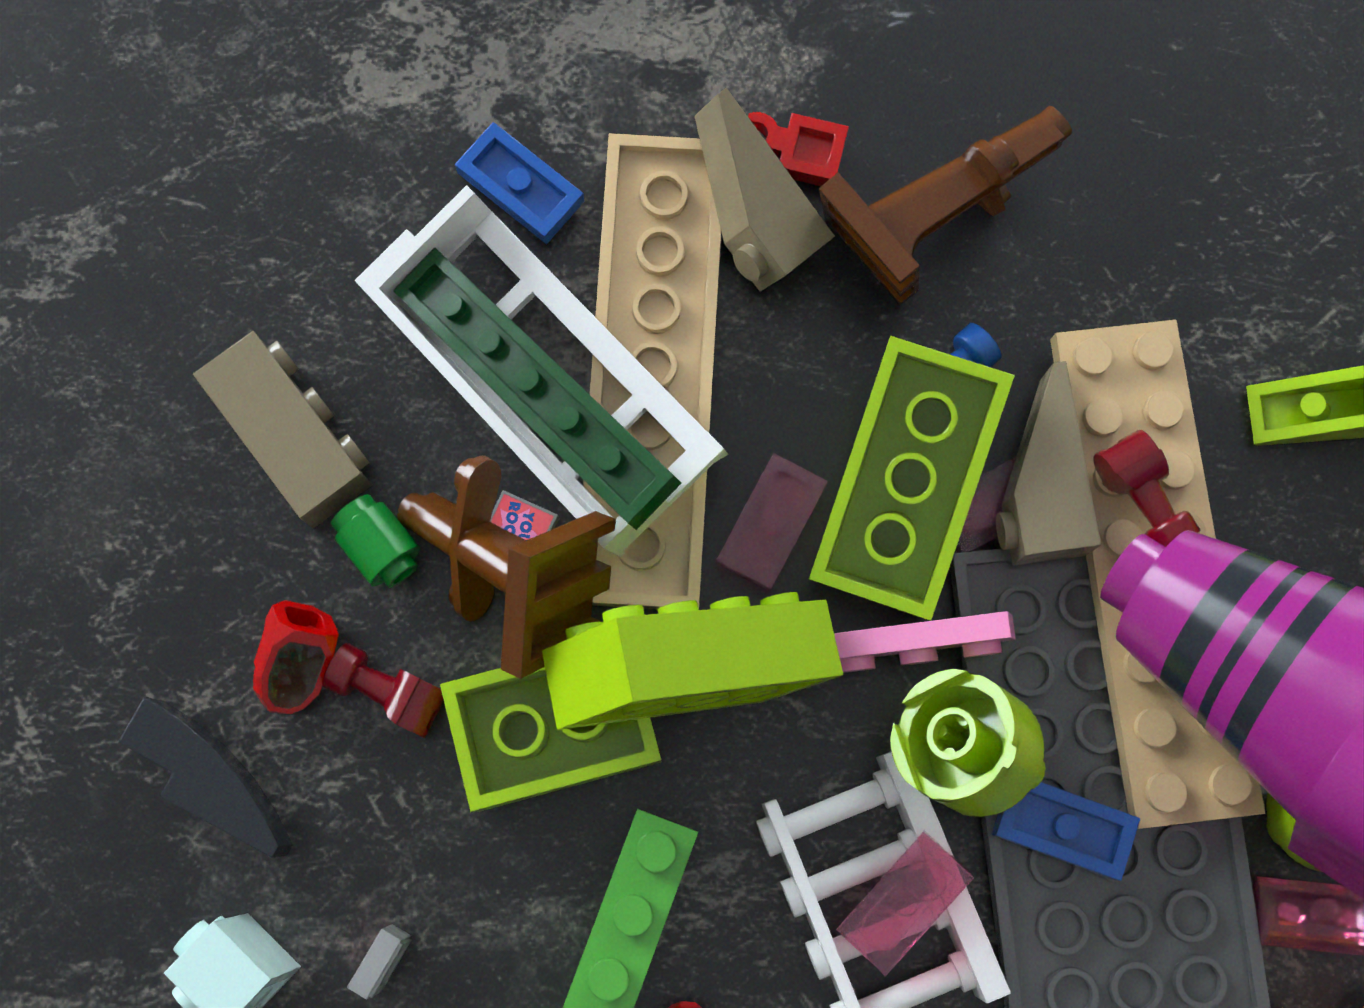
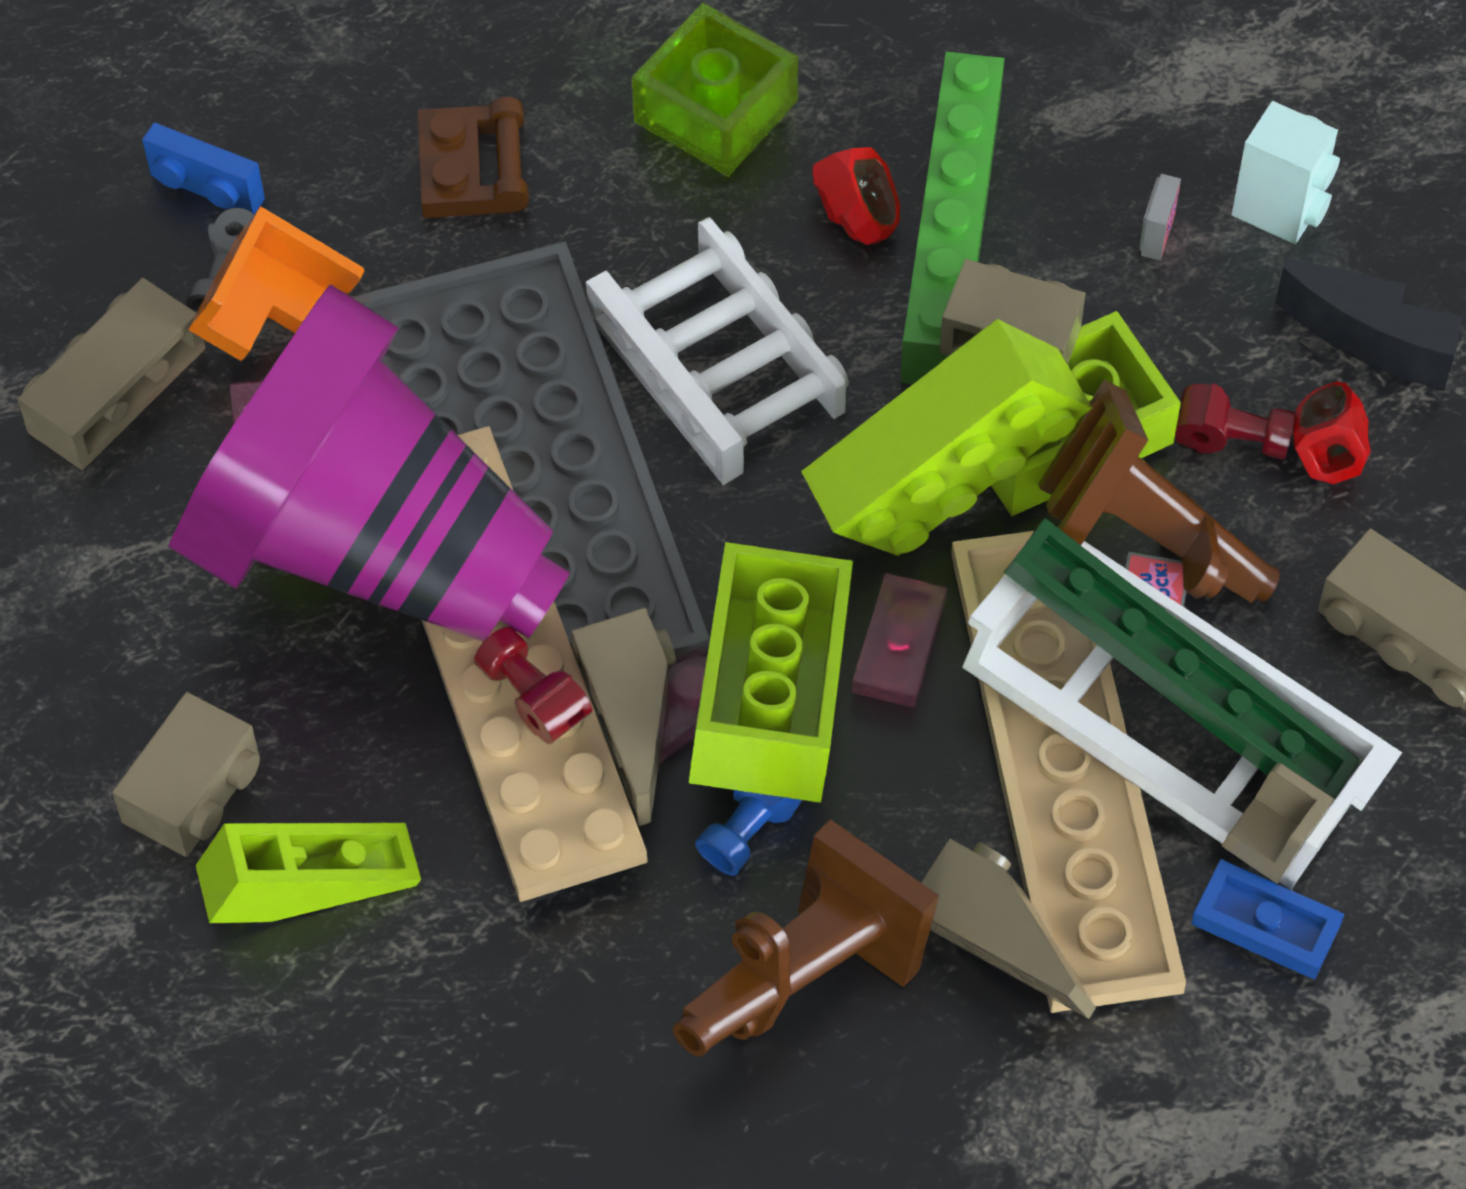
camera: 170 degrees right, 20 degrees down
(375, 541) = (1291, 541): green brick -> none
(489, 228) = (1277, 822): none -> dark tan panel
(585, 799) = (1032, 305): none -> dark tan brick
(807, 148) = (959, 1021): red plate -> none
(905, 902) = (697, 327): clear pink plate -> none
(920, 641) = (696, 548): bright pink plate -> none
(968, 743) = (668, 444): lime brick -> none
(1070, 830) = (558, 415): blue plate -> none

